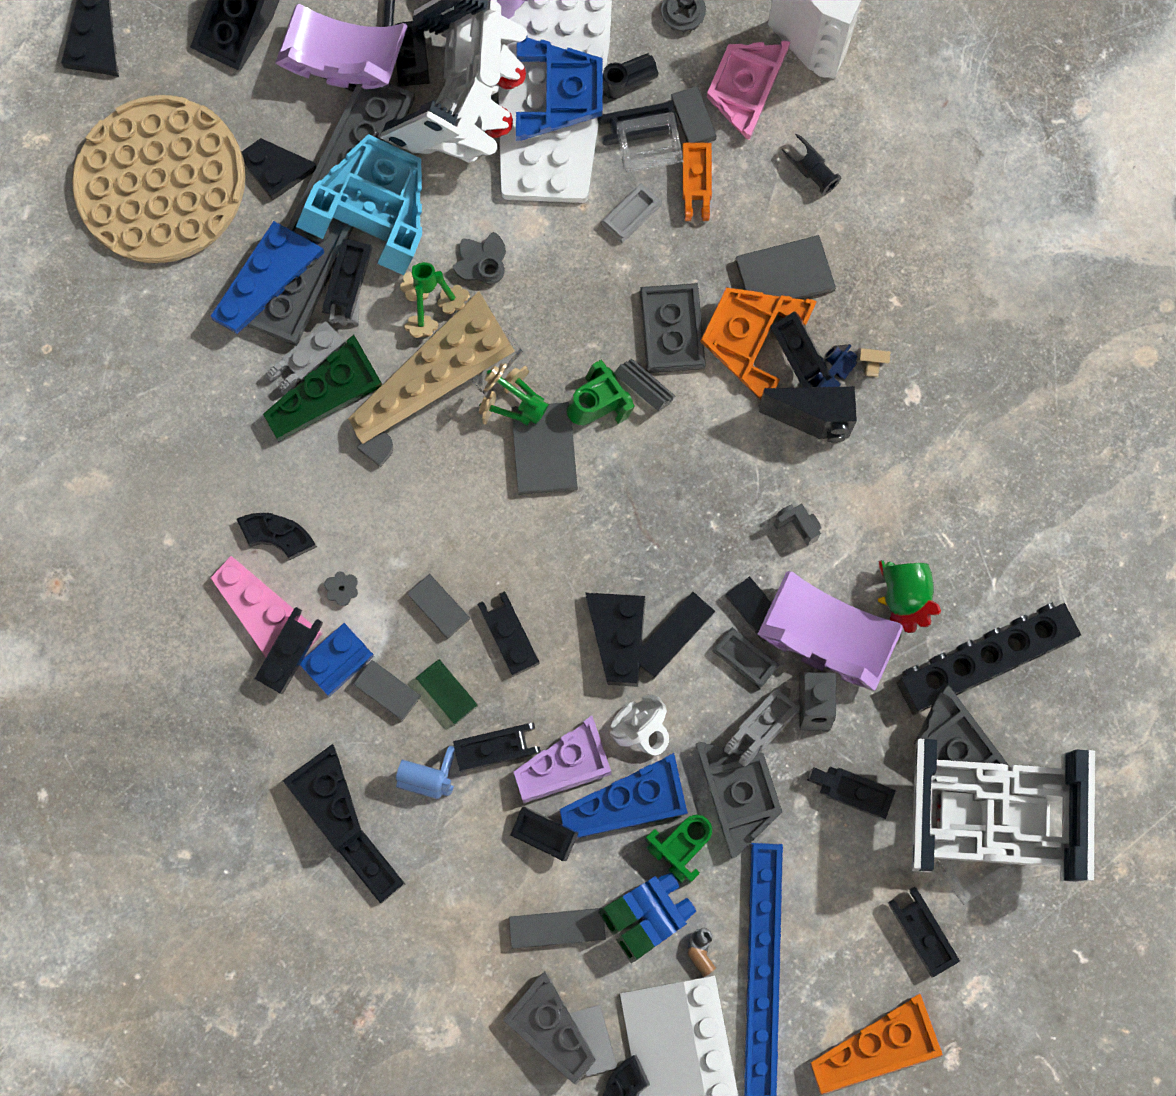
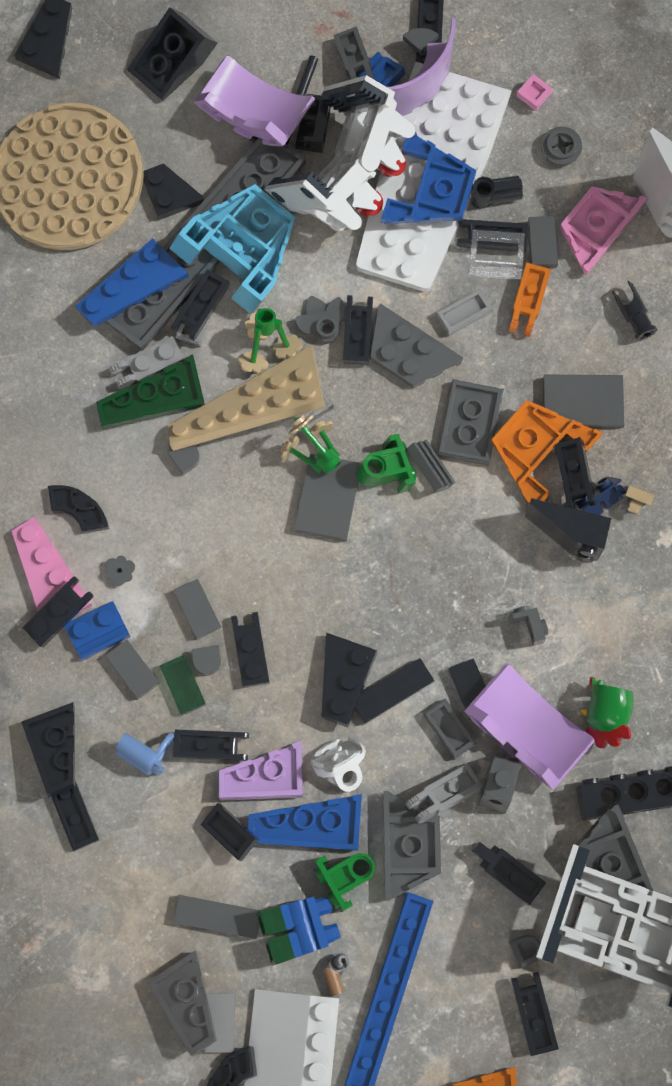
camera: 20 degrees right, 0 degrees up
(464, 657) = (207, 659): none -> dark grey tile
(524, 264) = (357, 332): none -> black hinge
(584, 269) = (408, 350): none -> dark grey wing
(895, 867) = (525, 949): none -> dark grey tile

